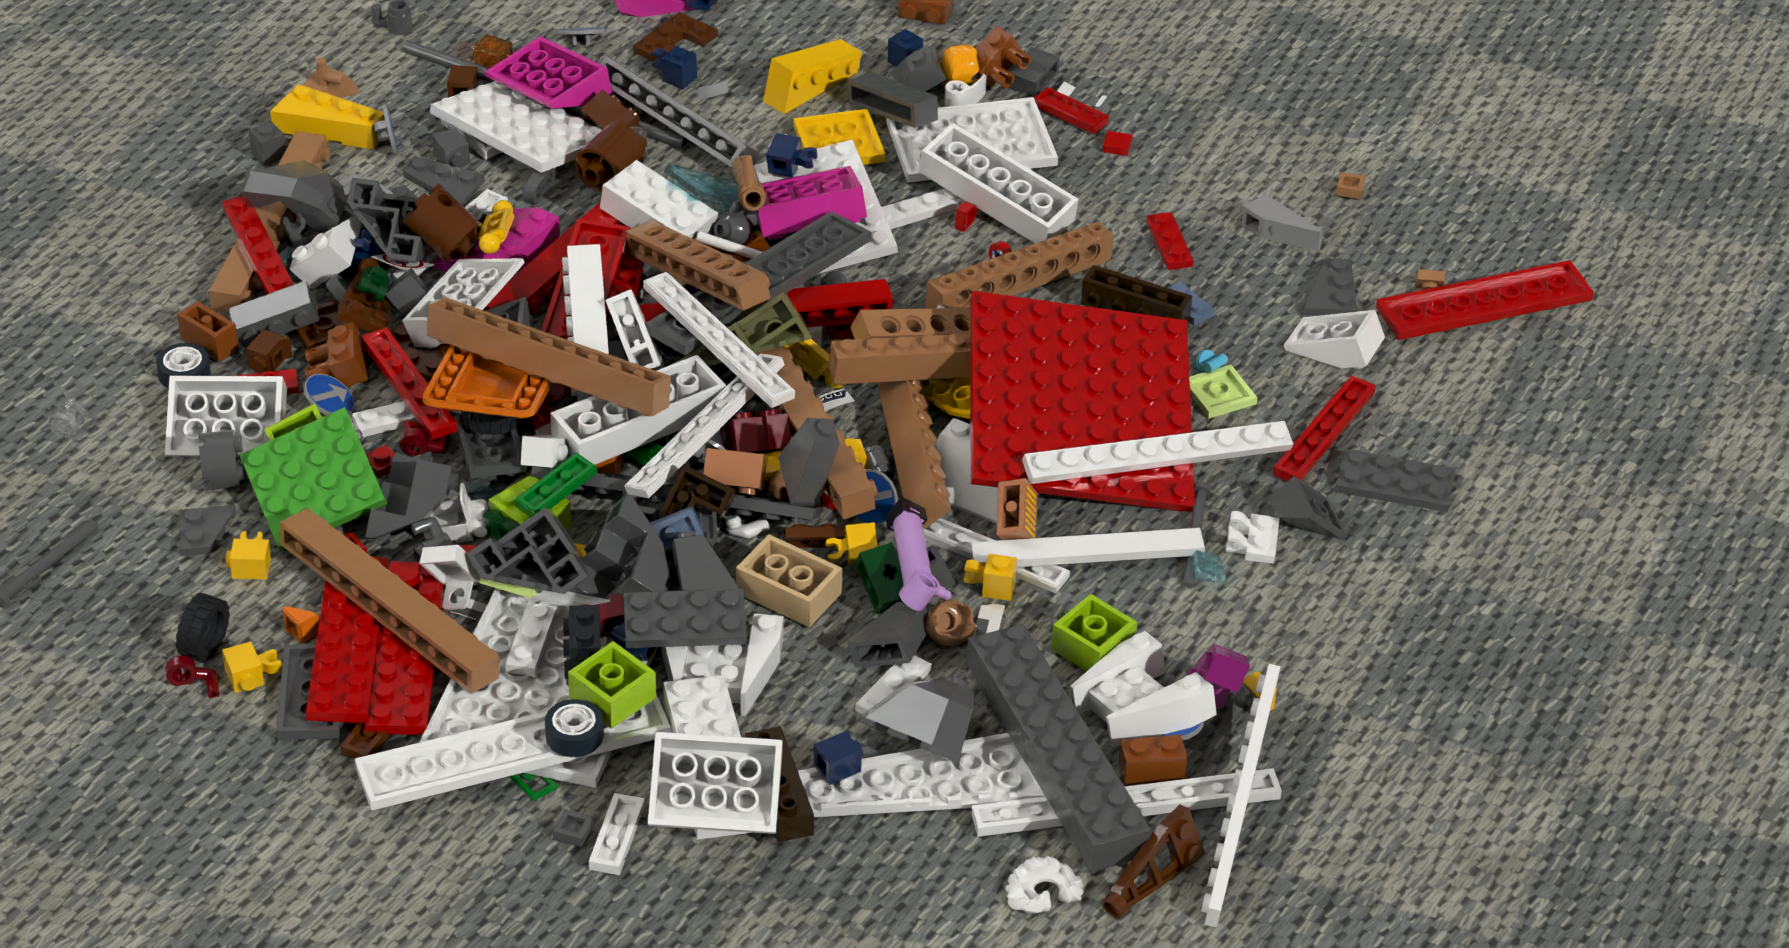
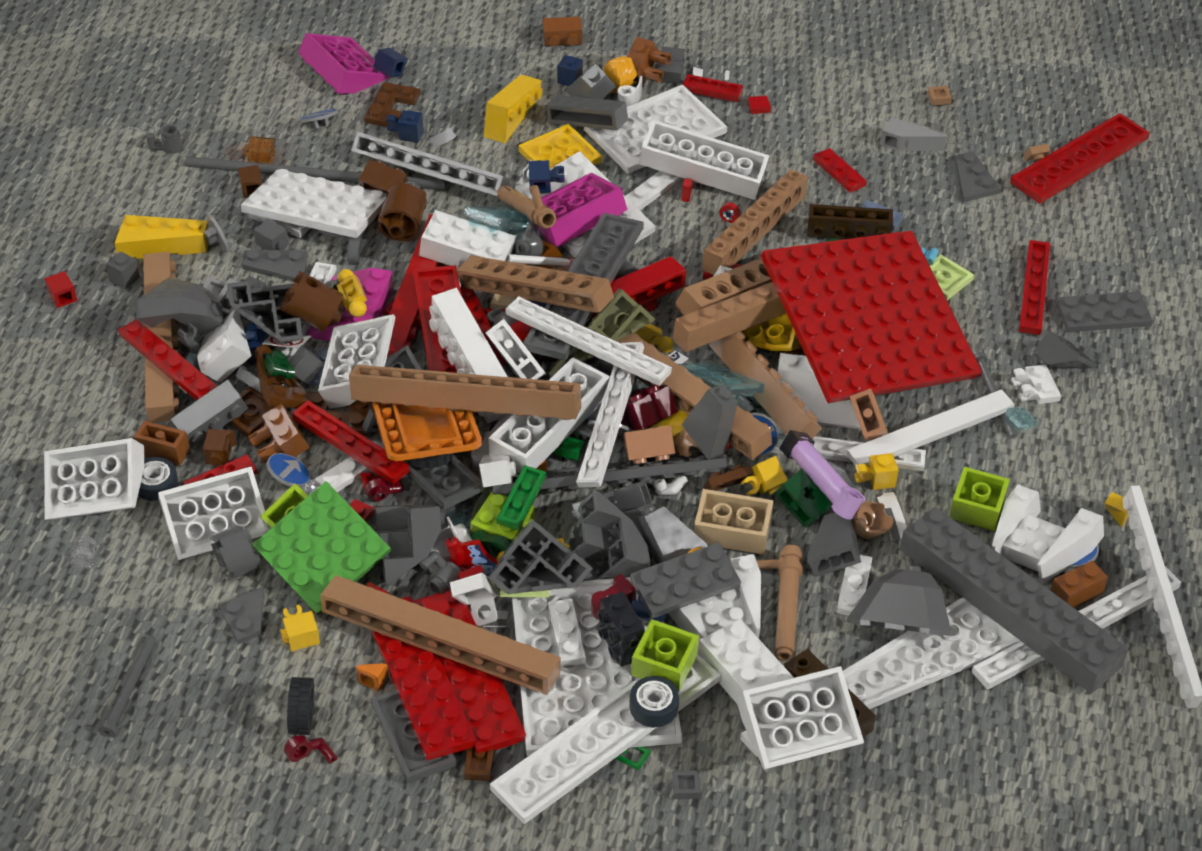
camera: 20 degrees left, 5 degrees up
(115, 345) = (92, 478): none -> white slope
(190, 147) = (60, 289): none -> red brick
(247, 668) = (351, 728): yellow brick -> none
(331, 81) = (141, 205): medium nougat shield -> none
(465, 528) = (470, 554): none -> red arm
(551, 74) = (321, 156): dark pink slope -> none
(616, 834) = (722, 778): white plate -> none
(677, 523) = (635, 503): sand blue plate -> none
(696, 488) = (630, 470): dark brown brick -> none
(824, 651) = (790, 571): none -> medium nougat cylinder
(838, 757) = (859, 660): dark blue brick -> none
(863, 426) = (715, 375): none -> clear light blue plate
(1036, 870) = (1048, 706): white piece -> none
(1156, 452) = (942, 340): white plate -> none
(1184, 847) = (1139, 652): reddish brown plate -> none
(1223, 670) = (1094, 498): magenta brick -> none
(1338, 339) = (1001, 214): white slope -> none

